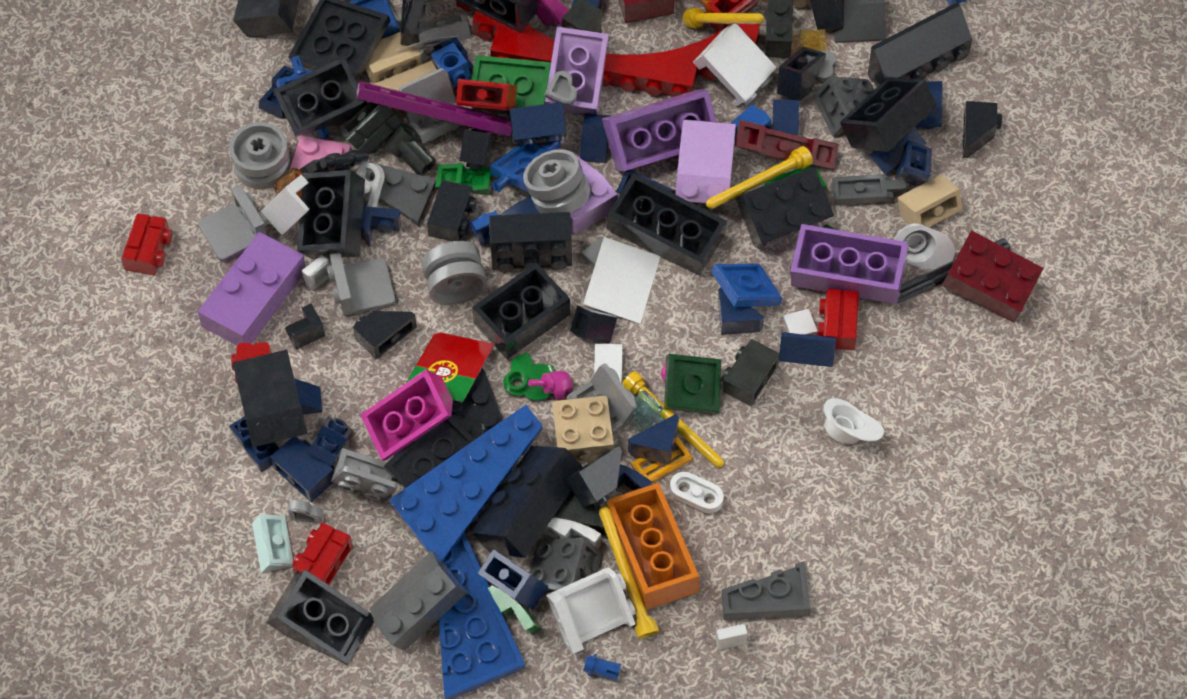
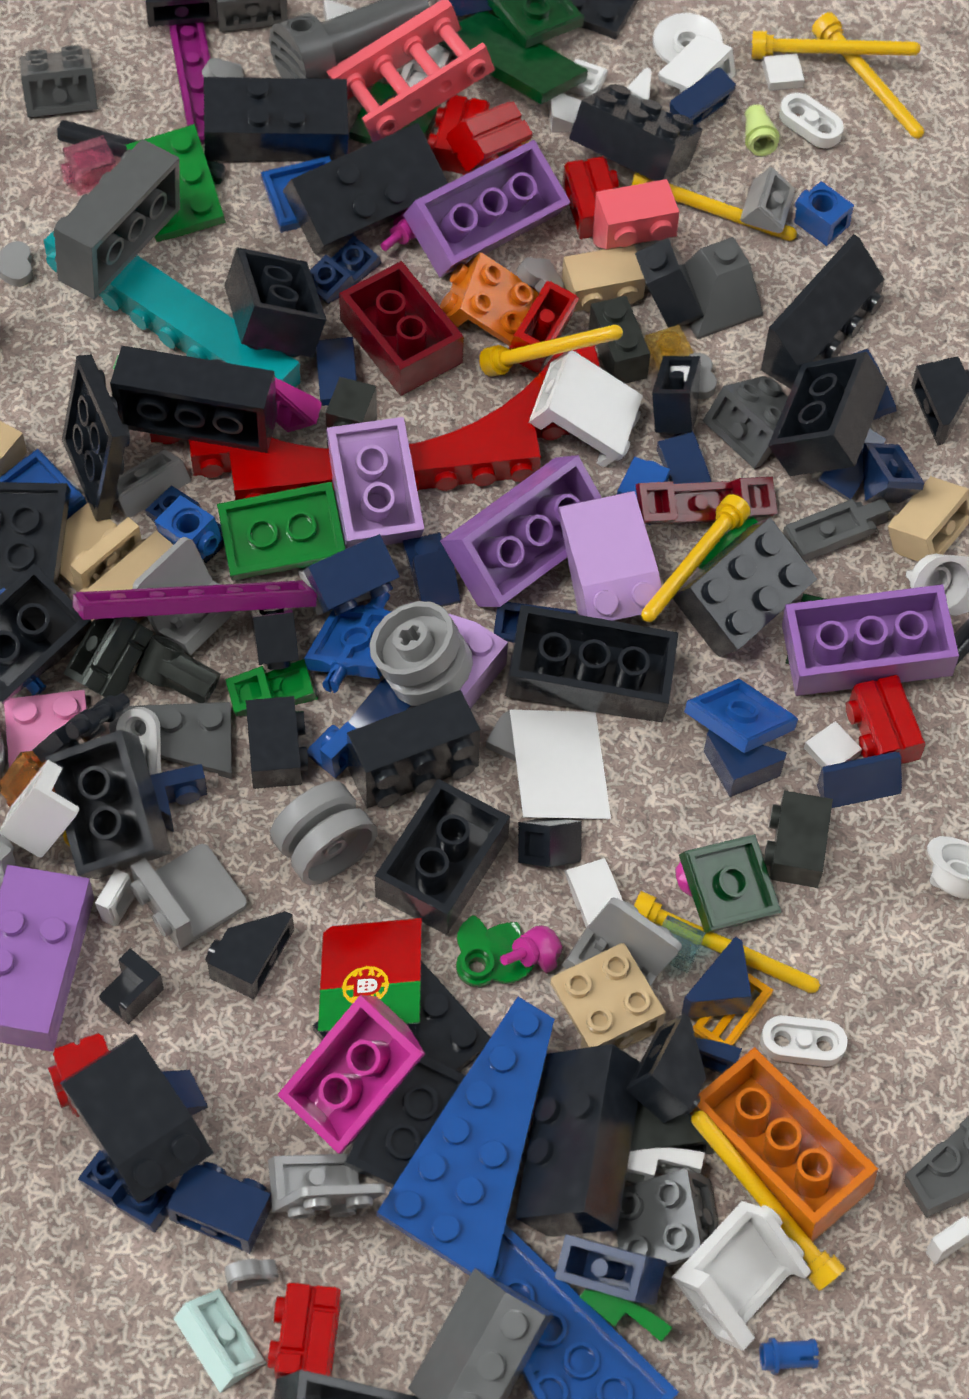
camera: 25 degrees left, 0 degrees up
(330, 440) = (243, 1149): dark blue slope -> none
(426, 43) = (140, 507): white sticker -> none
(486, 94) = (261, 556): red brick -> none
(561, 89) = (366, 516): light grey tile -> none

